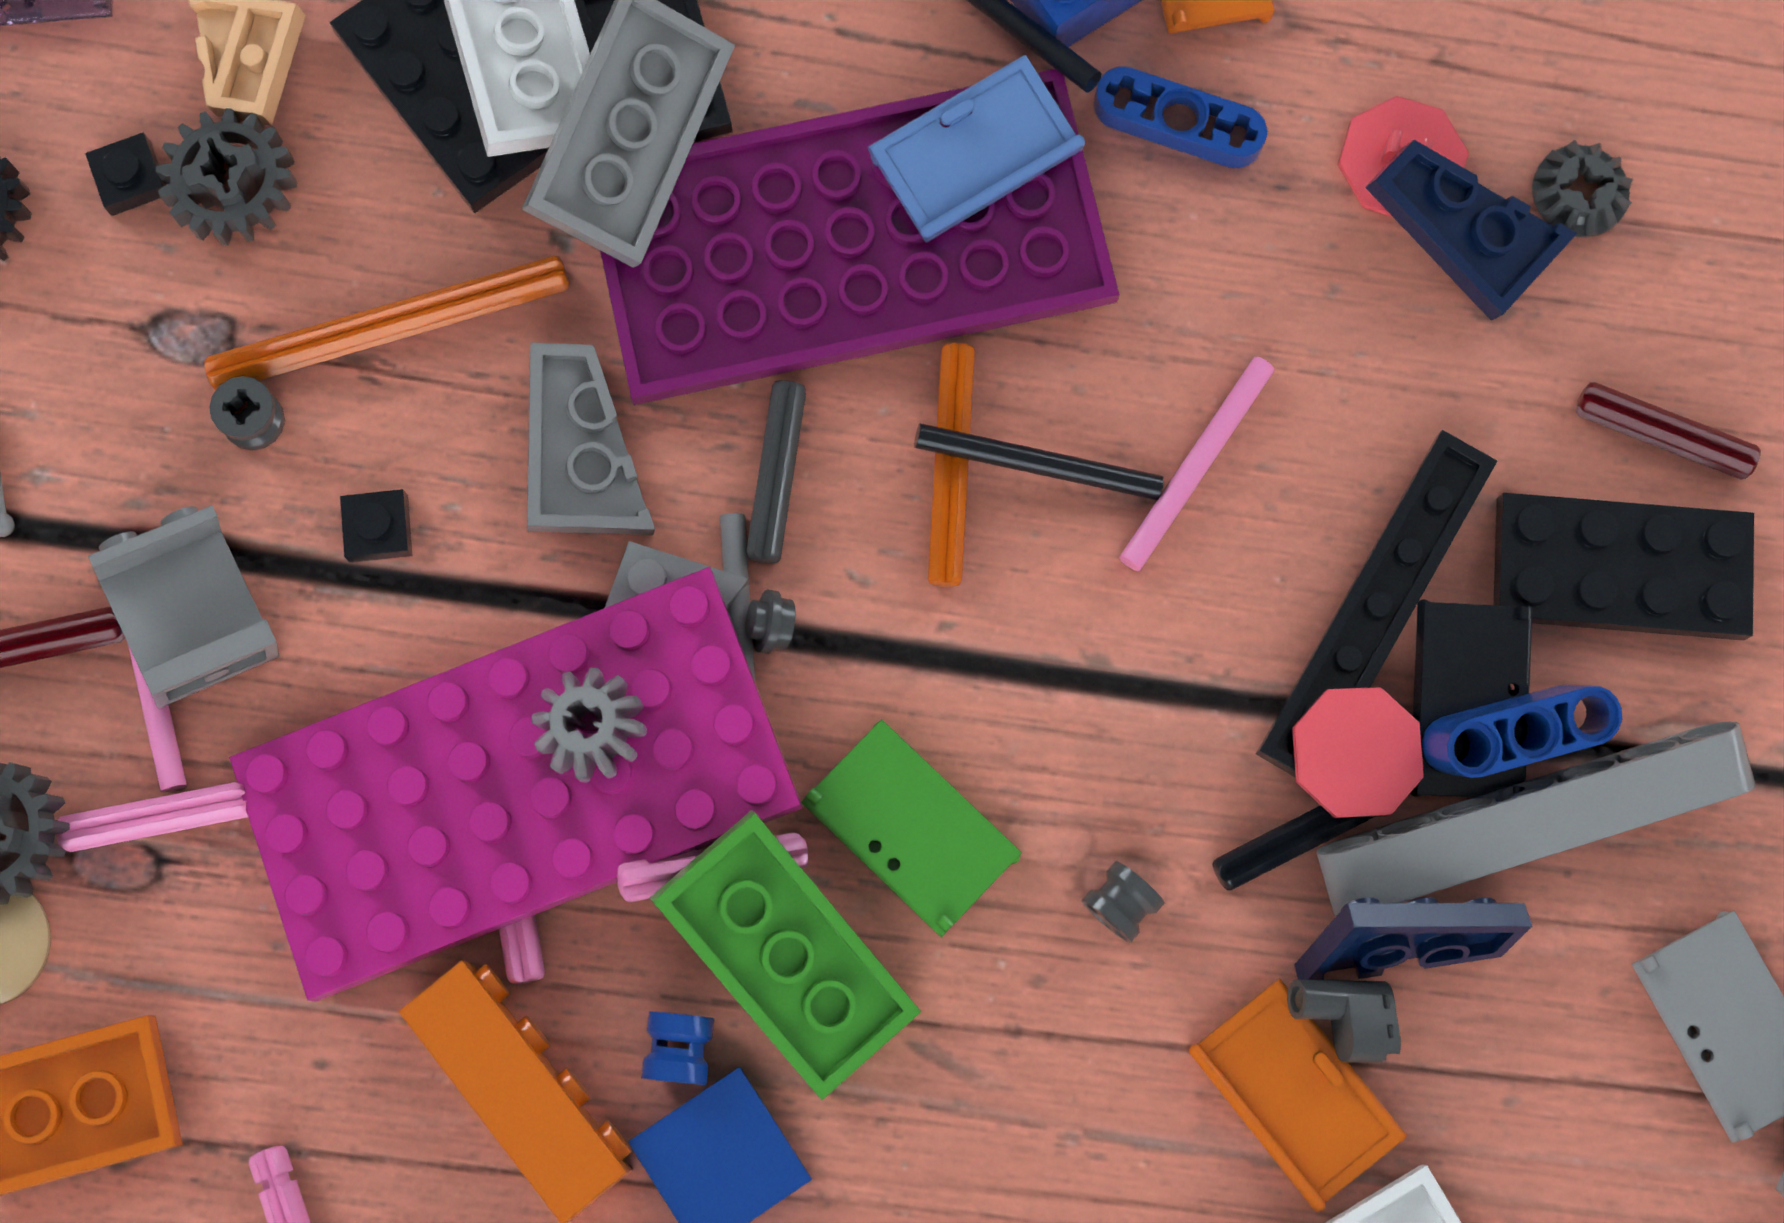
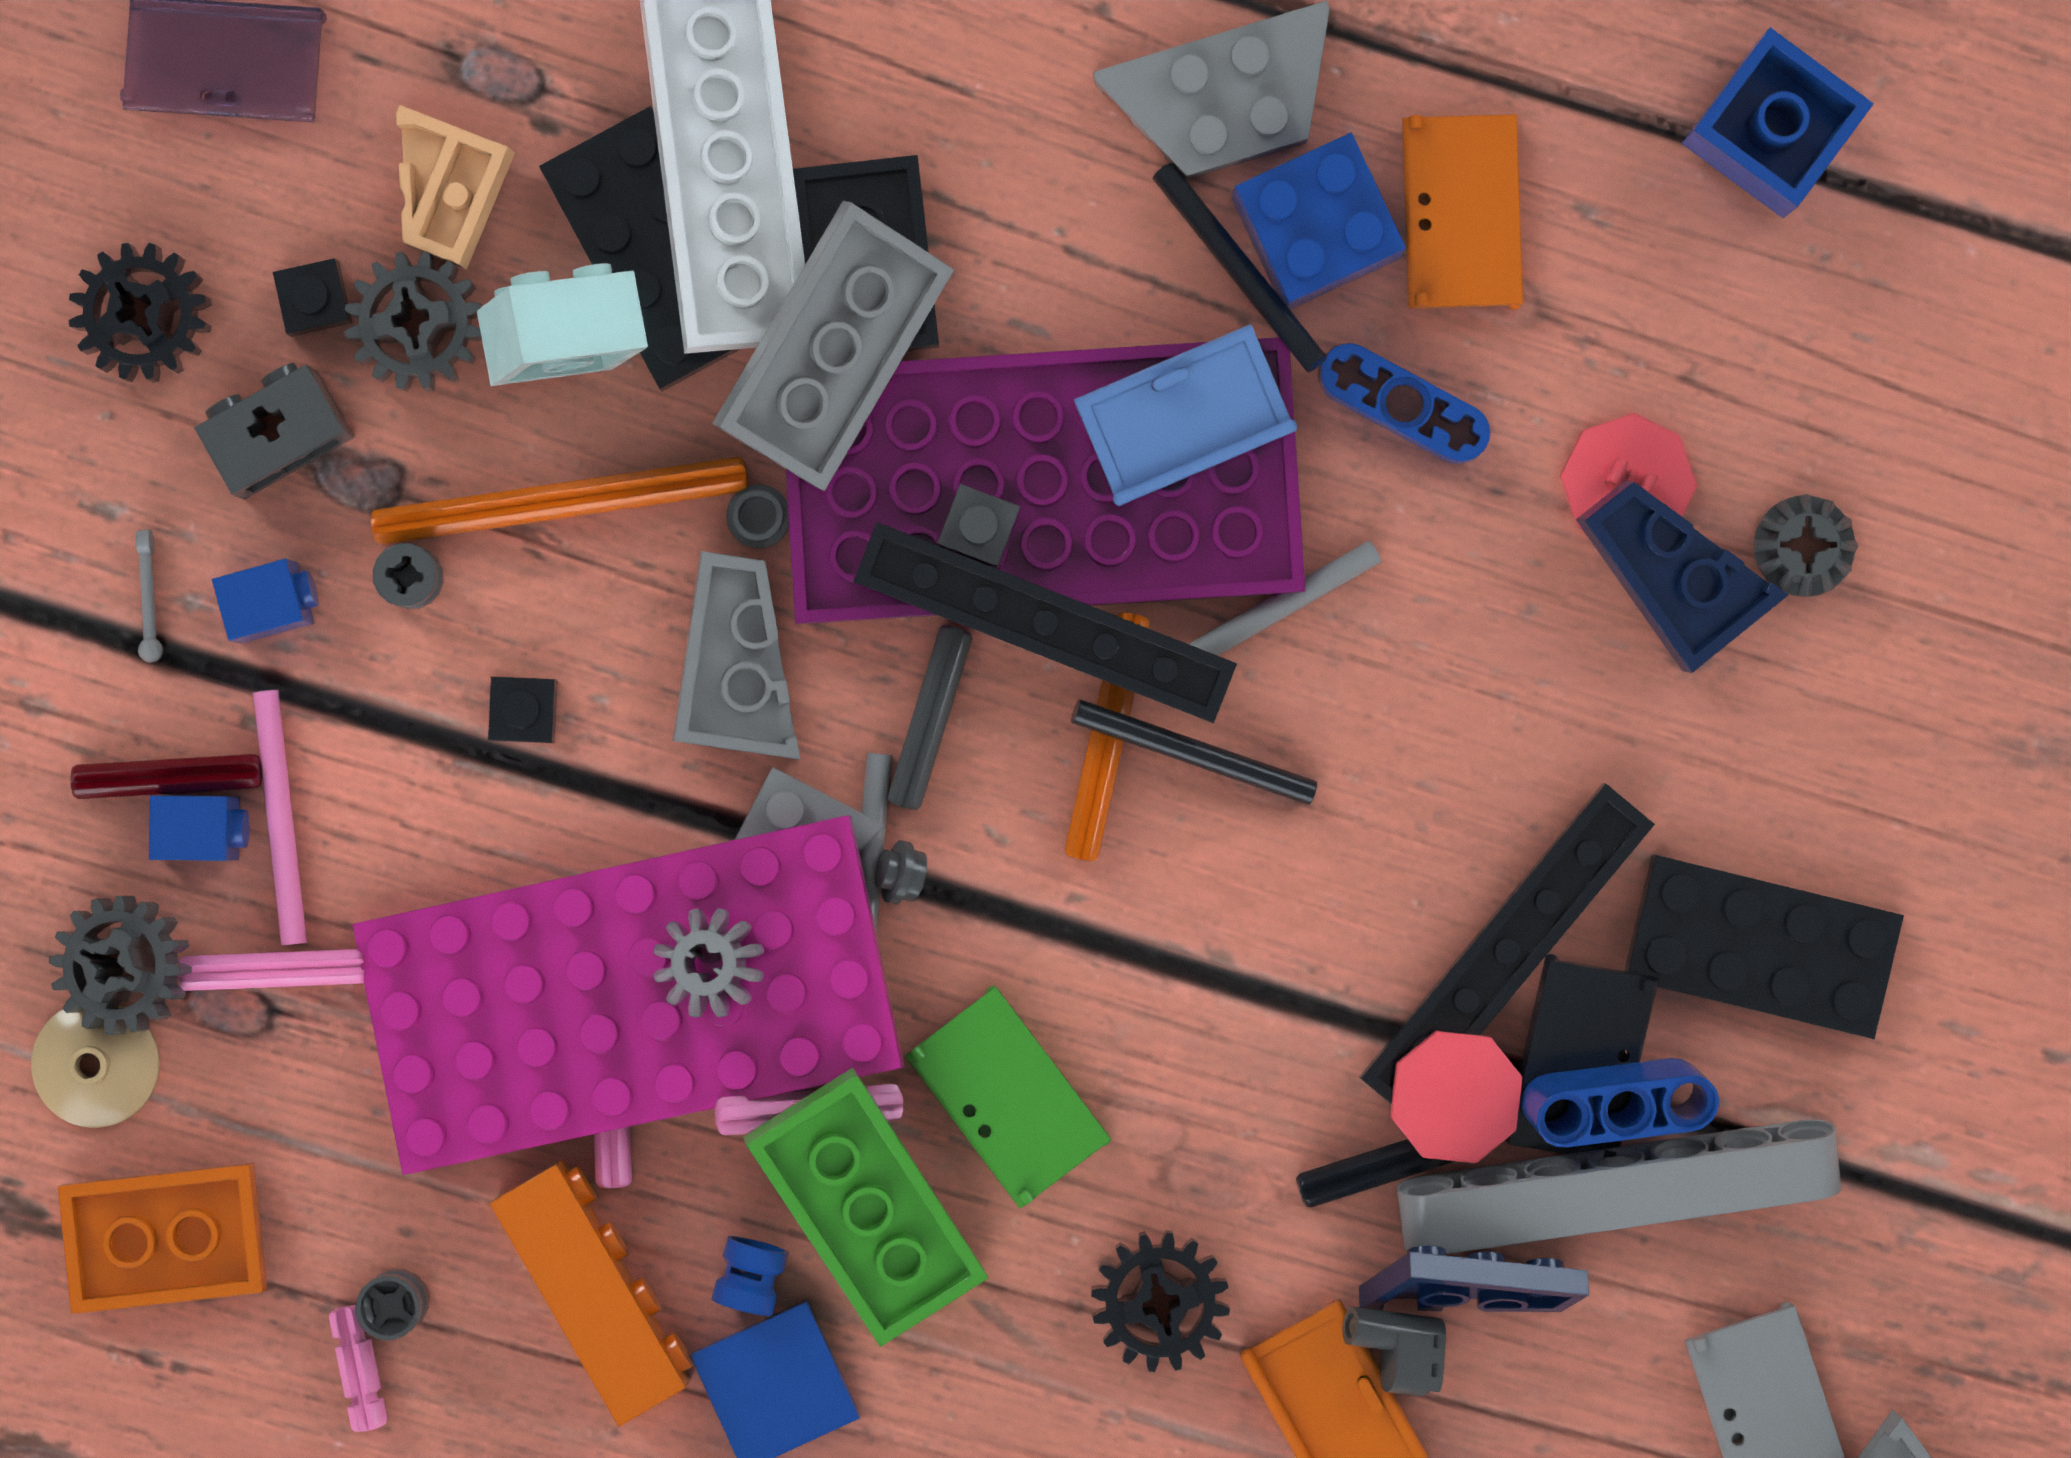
camera: 10 degrees right, 10 degrees up
(60, 685) = (197, 828): none -> blue brick
(90, 326) = (254, 461): none -> dark grey brick
(107, 456) = (265, 600): none -> blue brick
(183, 604) = (324, 767): light grey panel -> none
(300, 1134) = (383, 1313): none -> dark grey wheel
(364, 145) = (561, 325): none -> light aqua brick
(582, 309) = (758, 516): none -> dark grey plate
(795, 277) = (979, 525): none -> dark grey plate
(874, 354) = (1045, 622): none -> black plate
(1082, 329) = (1282, 605): none -> light grey bar
(1113, 1035) = (1189, 1291): none -> black gear
(1123, 901) = (1200, 1204): dark grey wheel -> none
(1196, 463) = (1355, 773): bright pink bar -> none
(1668, 430) = (1837, 815): dark red axle -> none

